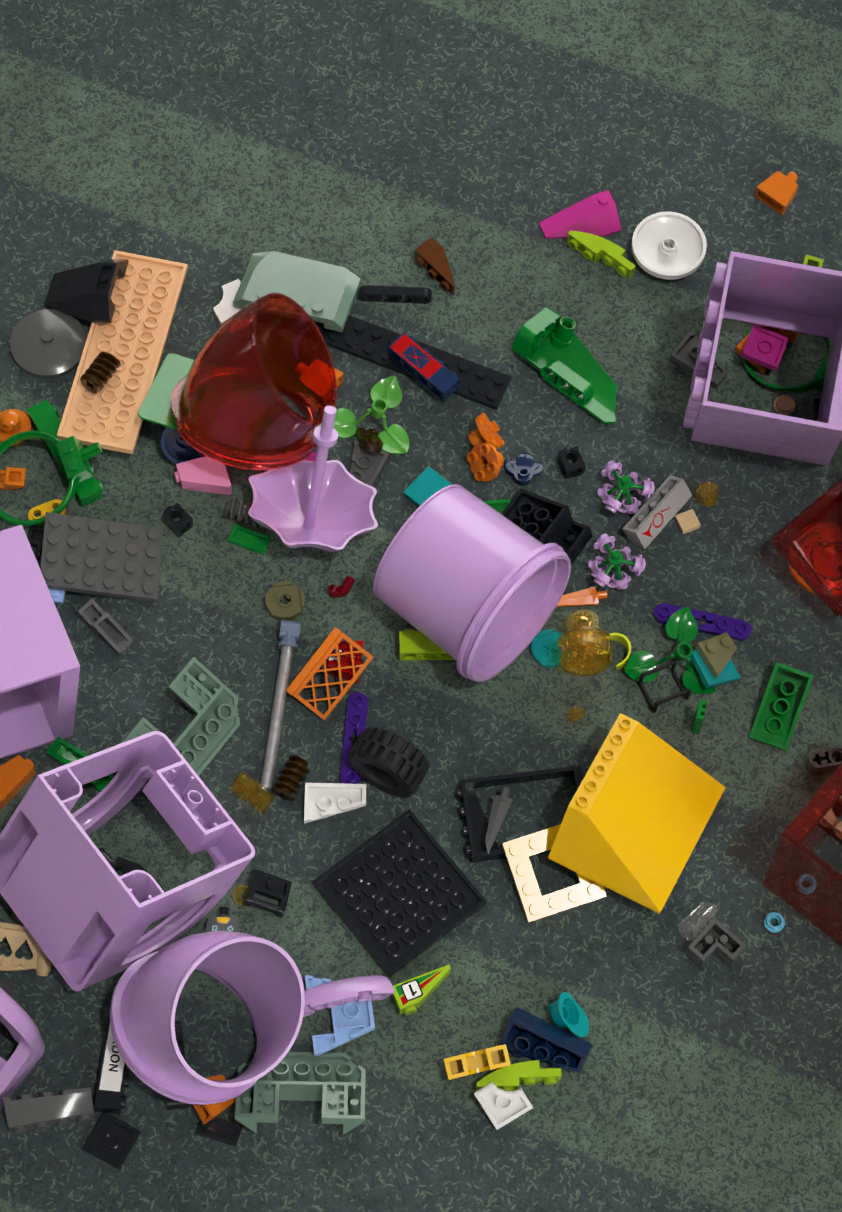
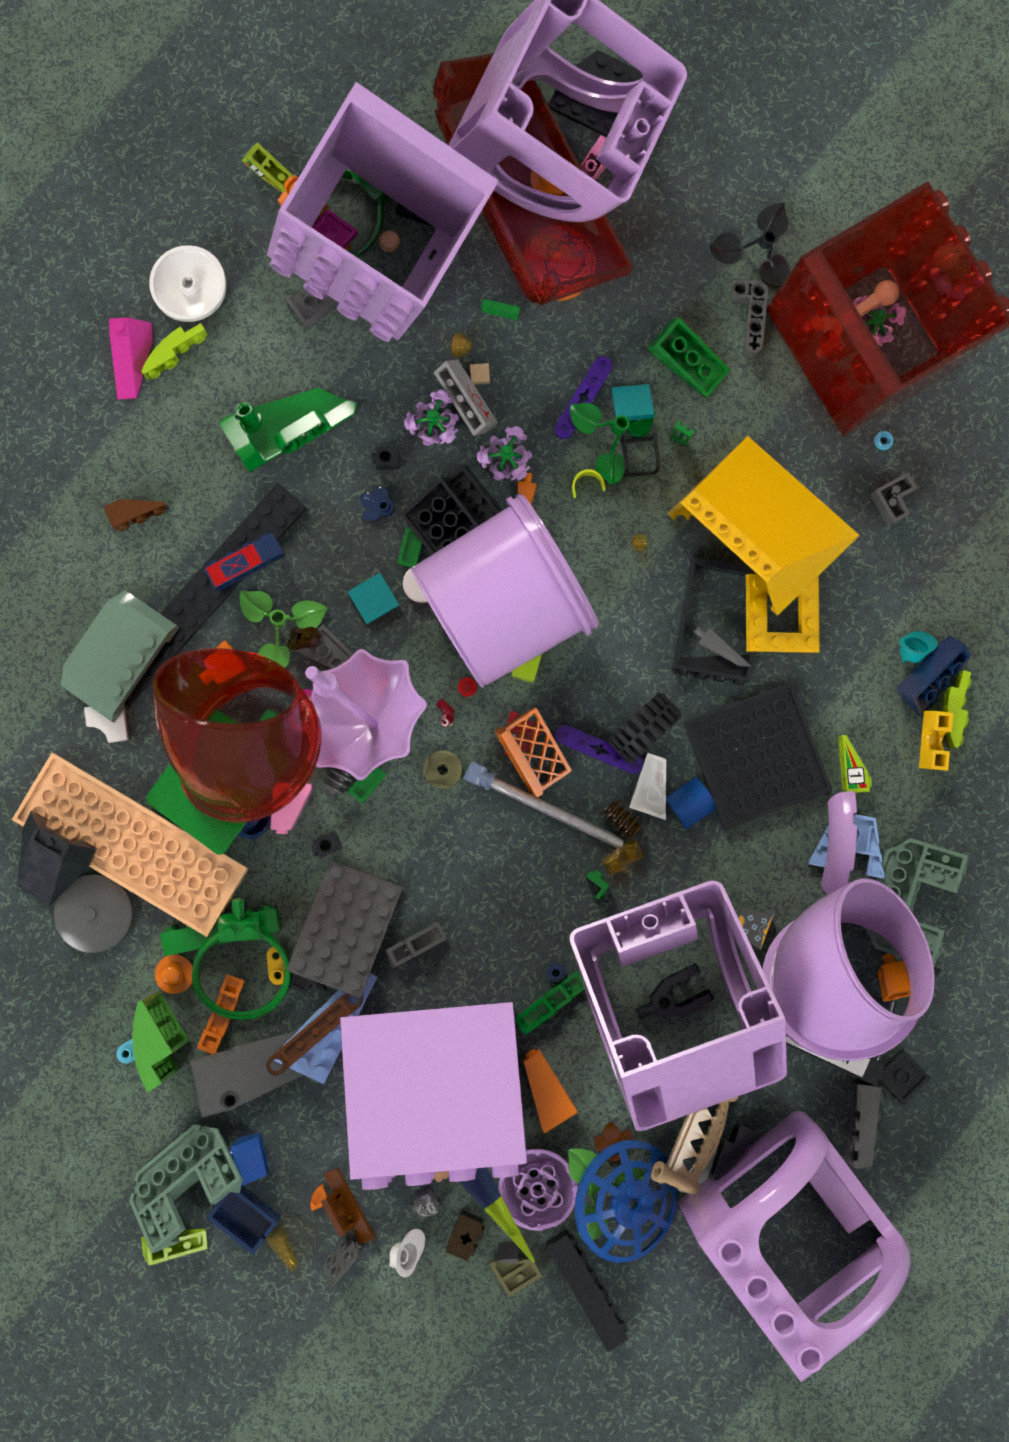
camera: 75 degrees left, 20 degrees up
(99, 372) = (151, 875): dark brown piece -> none
(213, 717) = (552, 889): sand green slope -> none
(223, 774) = (597, 878): none -> green bracket
(268, 886) = (719, 869): black plate -> none
(328, 842) = (691, 802): none -> blue slope
(372, 602) = (467, 687): none -> red tile
(395, 294) = (152, 562): black beam -> none
(485, 462) = (362, 537): orange plate -> none
(486, 432) = (333, 526): orange plate -> none
(502, 1105) = (978, 731): white tile -> none
(546, 649) = (569, 541): teal tile -> none
(584, 647) = (584, 511): clear yellow piece -> none
(697, 920) = (868, 500): clear slope -> none
(716, 652) = (623, 395): olive wing -> none
(757, 519) = (500, 309): none -> green tile
(778, 191) = (162, 158): orange torso -> none

